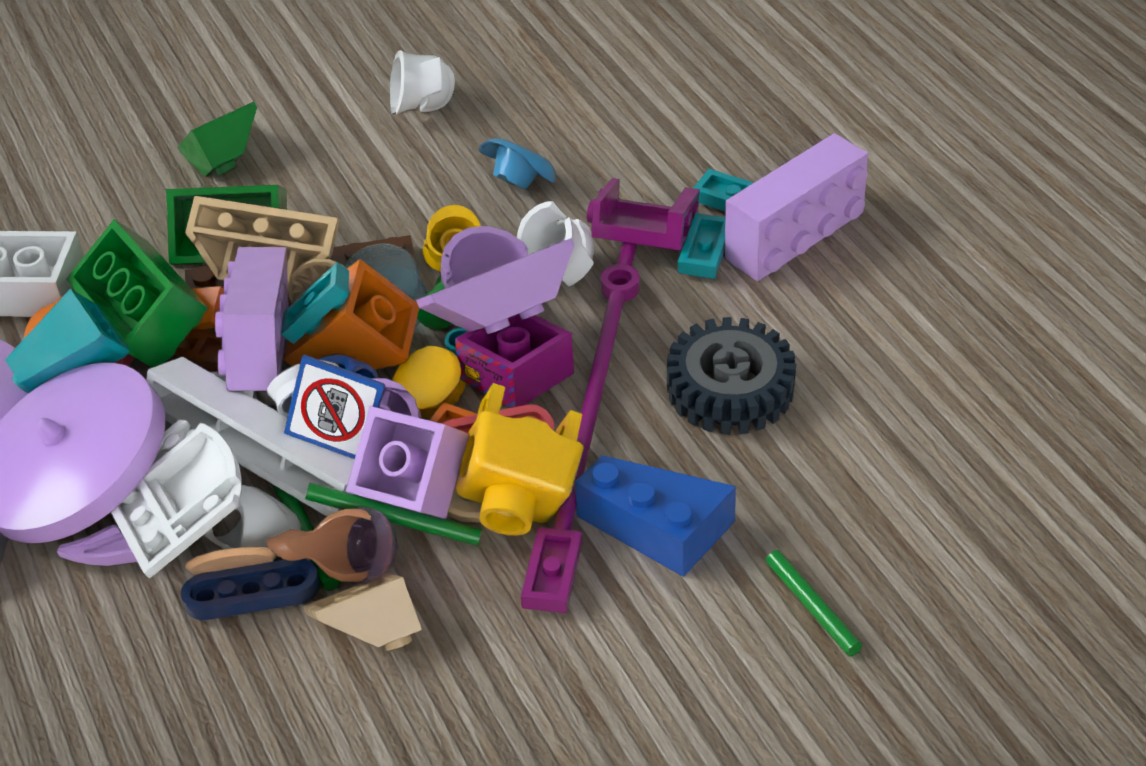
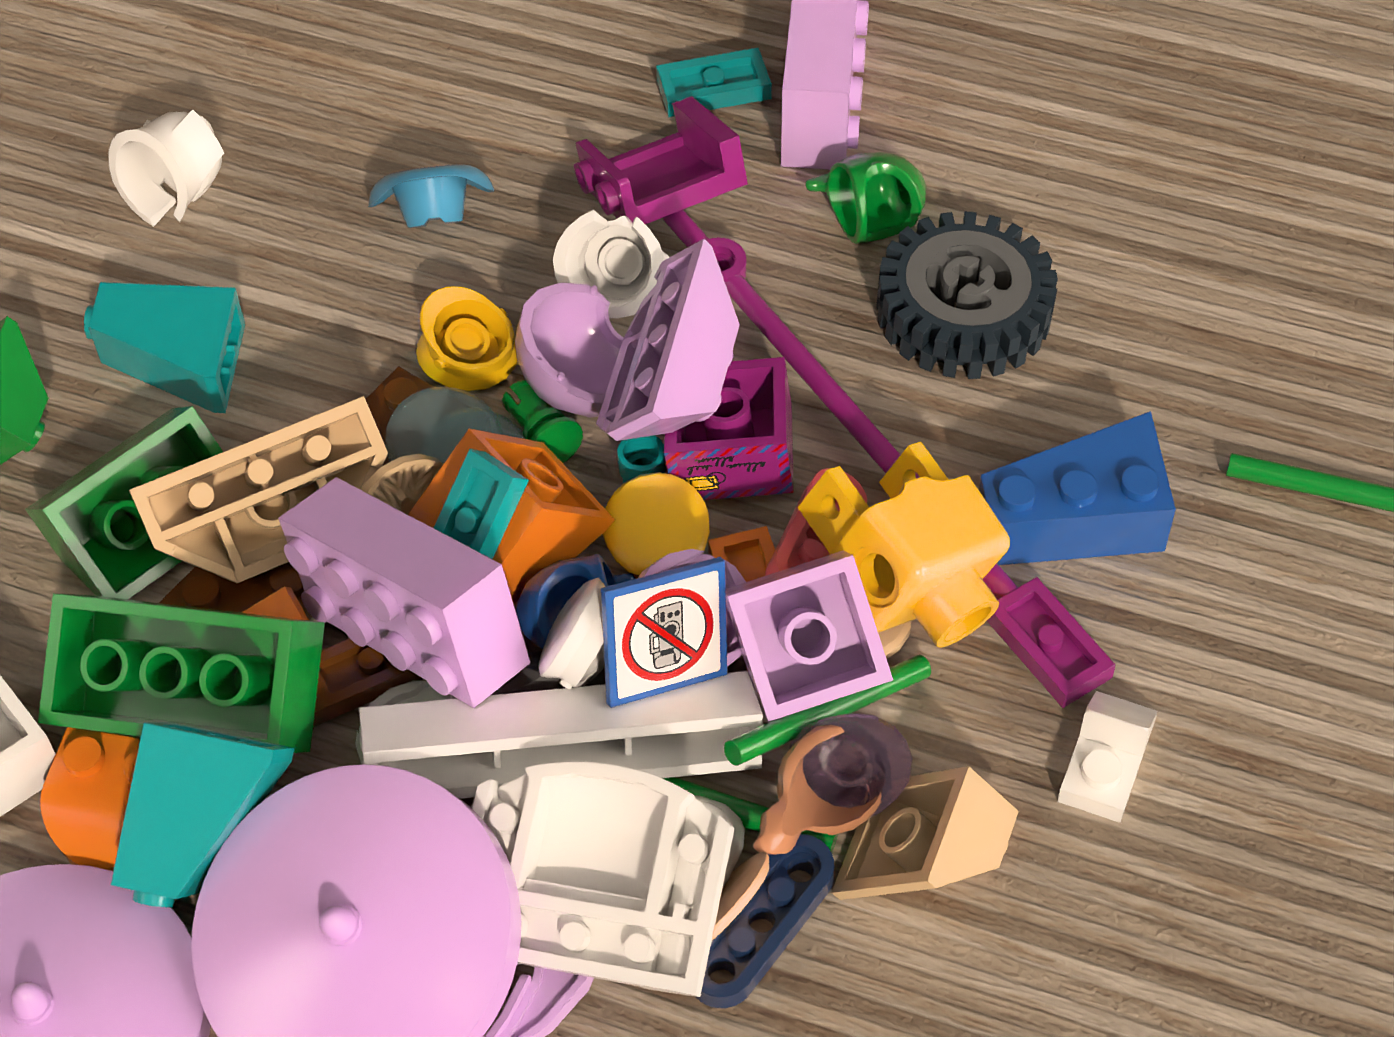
camera: 45 degrees left, 10 degrees up
(331, 162) = (170, 337): none -> teal slope
(522, 643) = (1107, 756): none -> white slope
(703, 247) = (768, 168): teal plate -> none
(744, 294) = (873, 194): none -> green piece

